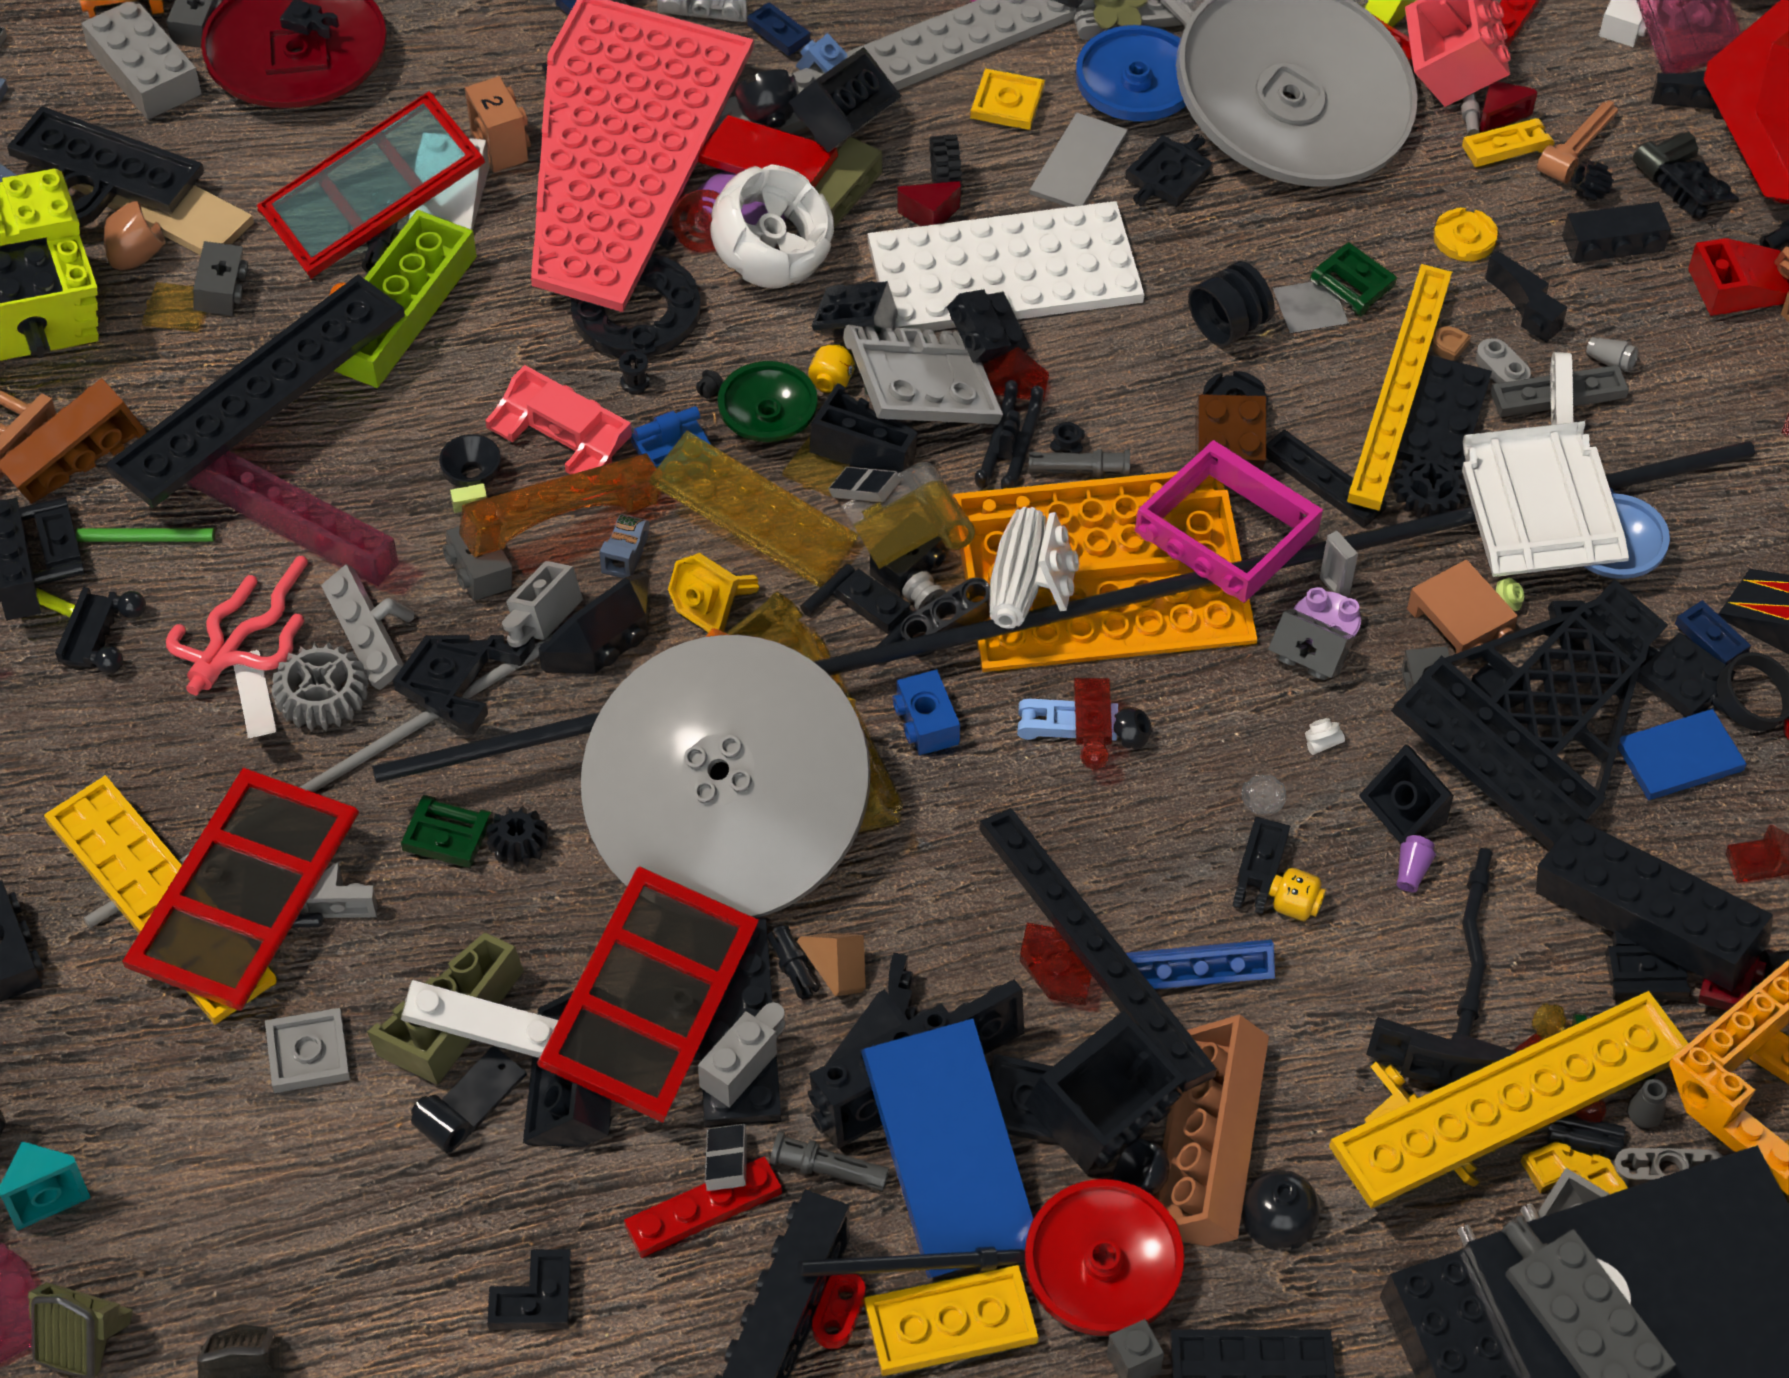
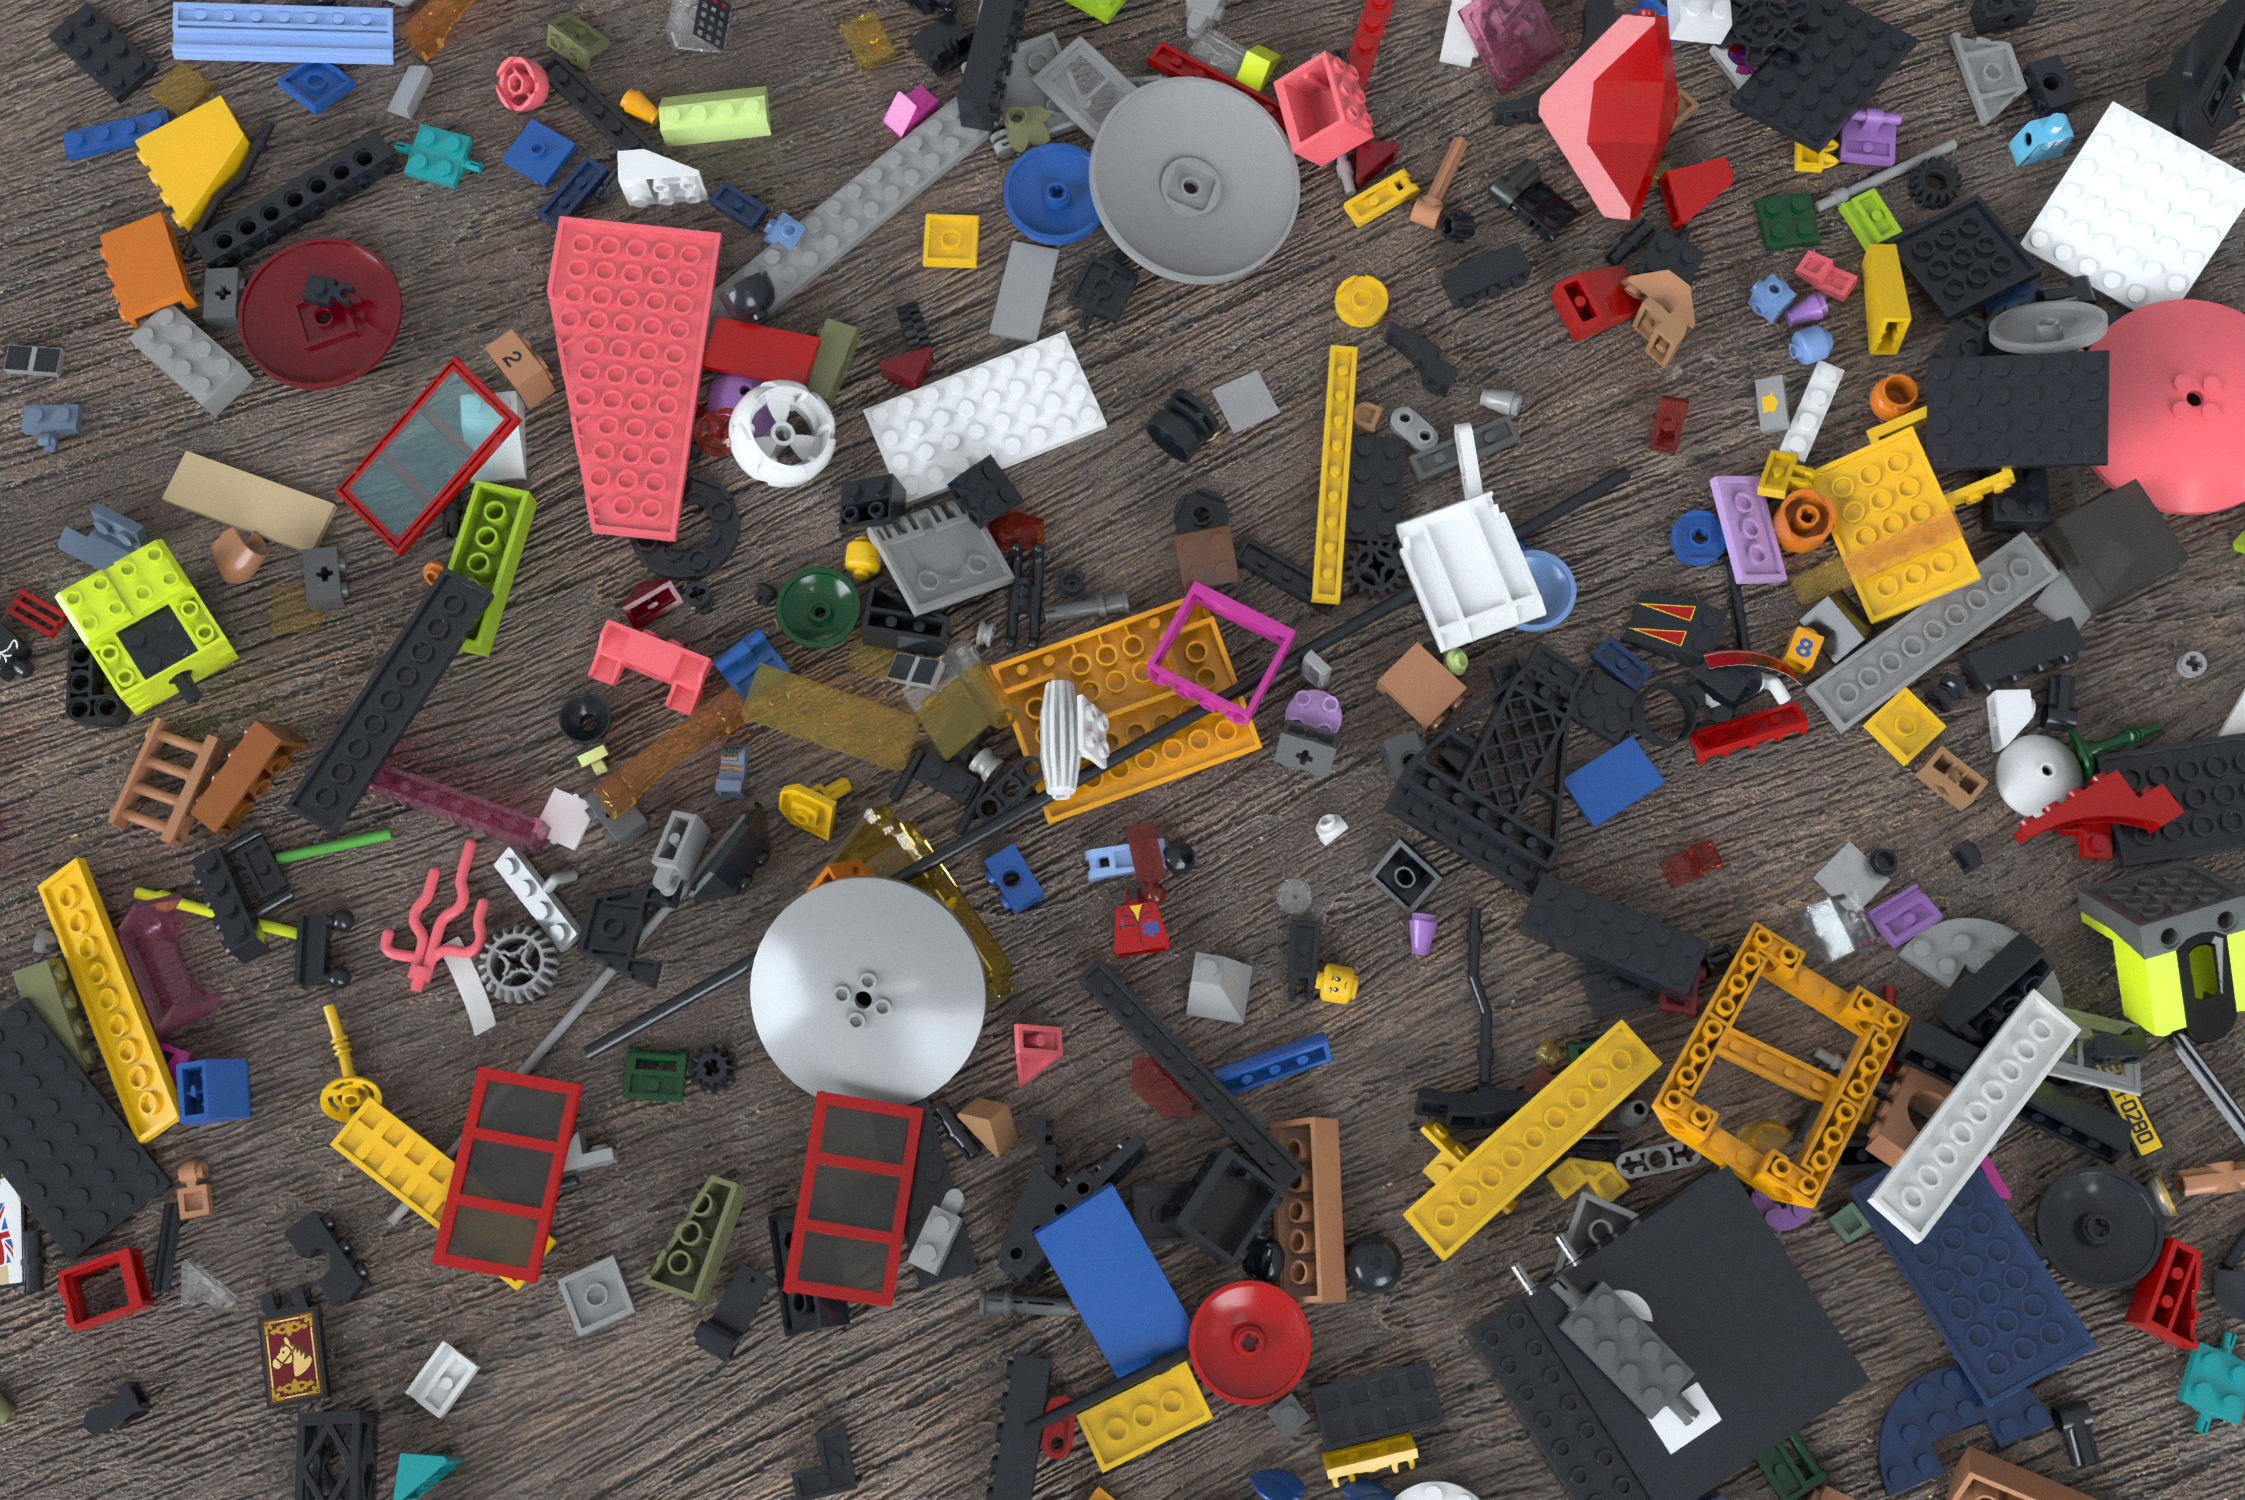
camera: 10 degrees left, 20 degrees up
(90, 757) = (353, 1084): none -> yellow dish
(94, 1099) = (442, 1379): none -> white plate
(106, 162) = (191, 478): black plate -> none
(419, 560) = (566, 818): none -> white piece
(477, 1019) = (727, 1256): white plate -> none
(580, 367) = (650, 601): none -> dark red slope
(700, 1209) = (936, 1361): red plate -> none
(726, 1157) = (945, 1320): black tile -> none
(844, 99) = (815, 288): black brick -> none
(910, 891) = (1036, 1049): none -> coral slope
(955, 466) = (985, 633): none -> light grey bush
(1066, 791) = (1138, 927): none -> red torso
(1149, 871) = (1219, 988): none -> light grey slope
(1358, 271) = (1281, 362): dark green plate -> none

